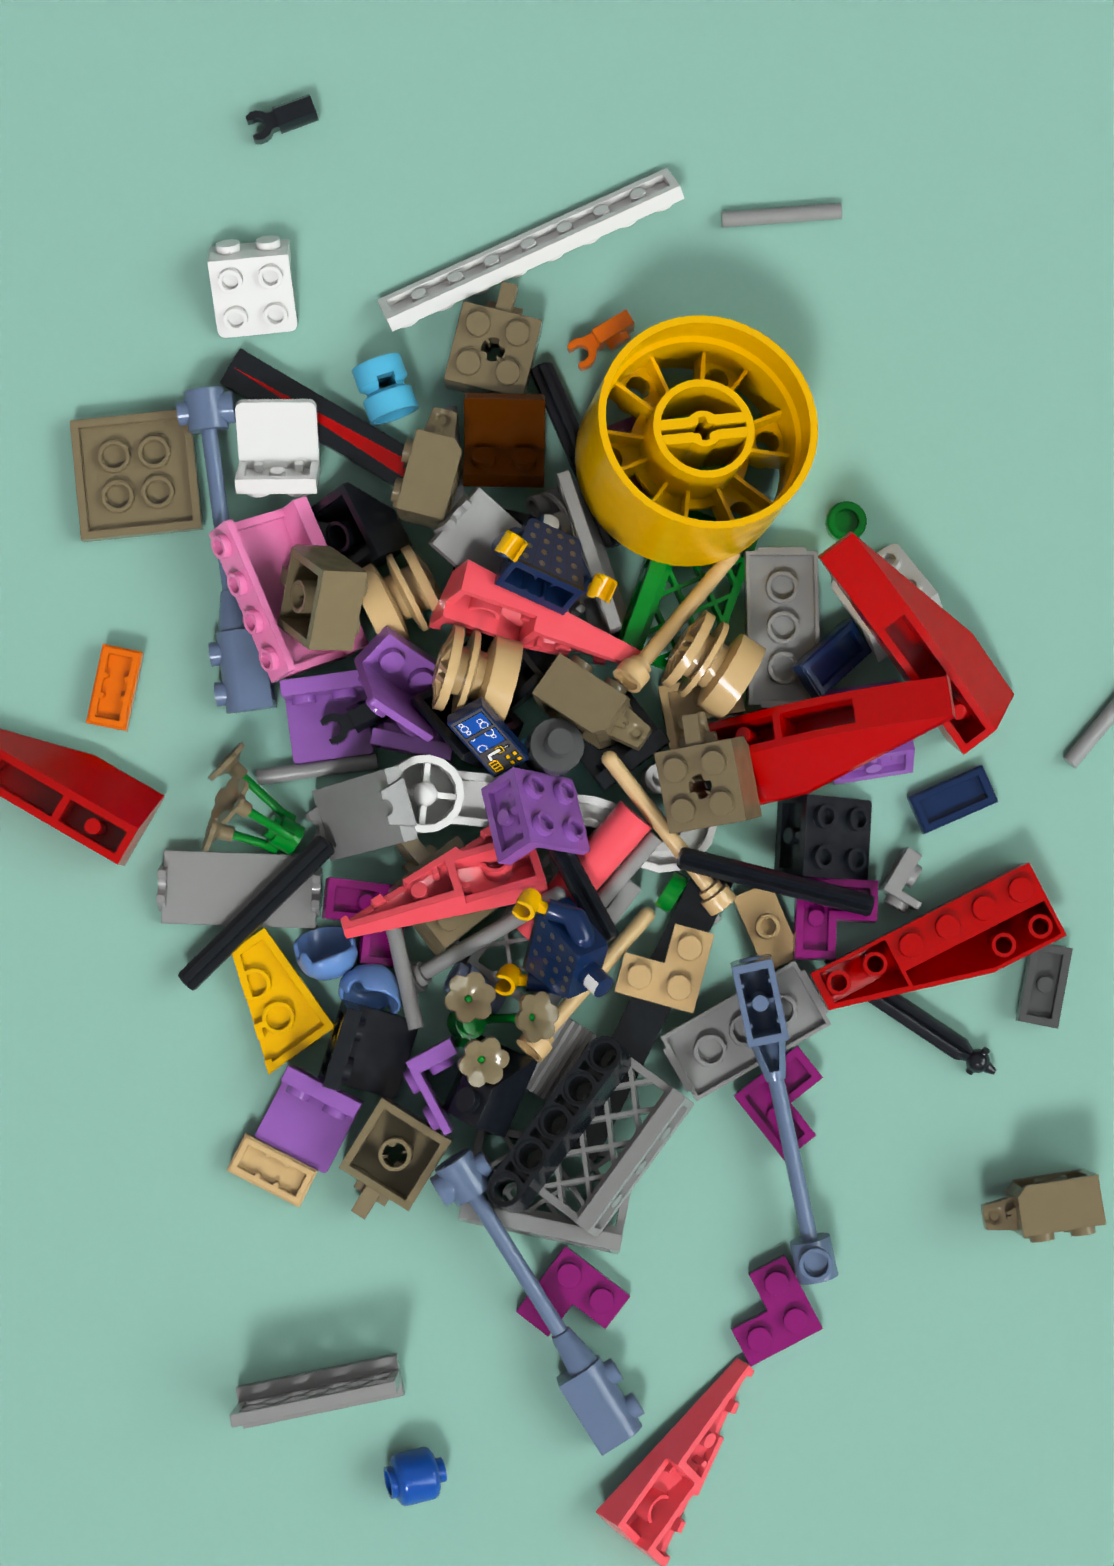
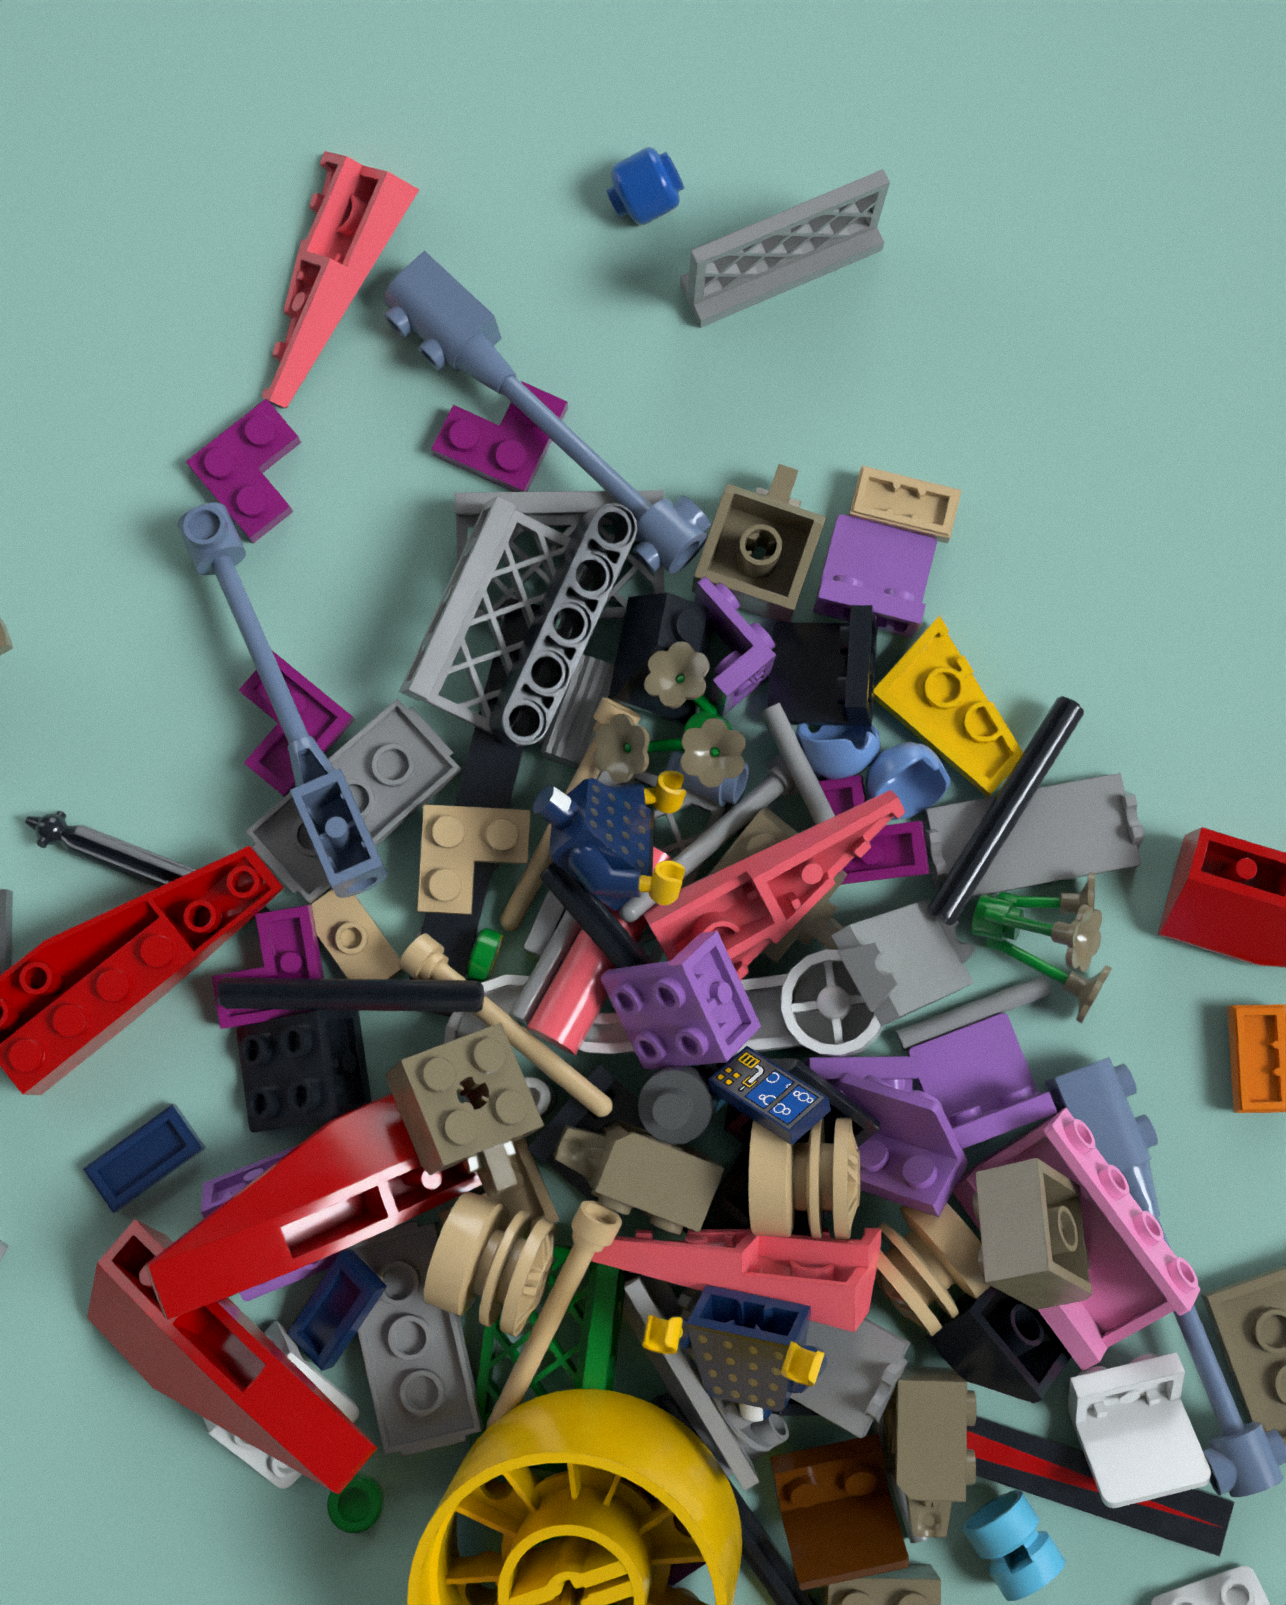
camera: 165 degrees right, 5 degrees down
(358, 717) = (947, 1083): black bar -> none
(902, 873) = (192, 1045): light grey bracket -> none

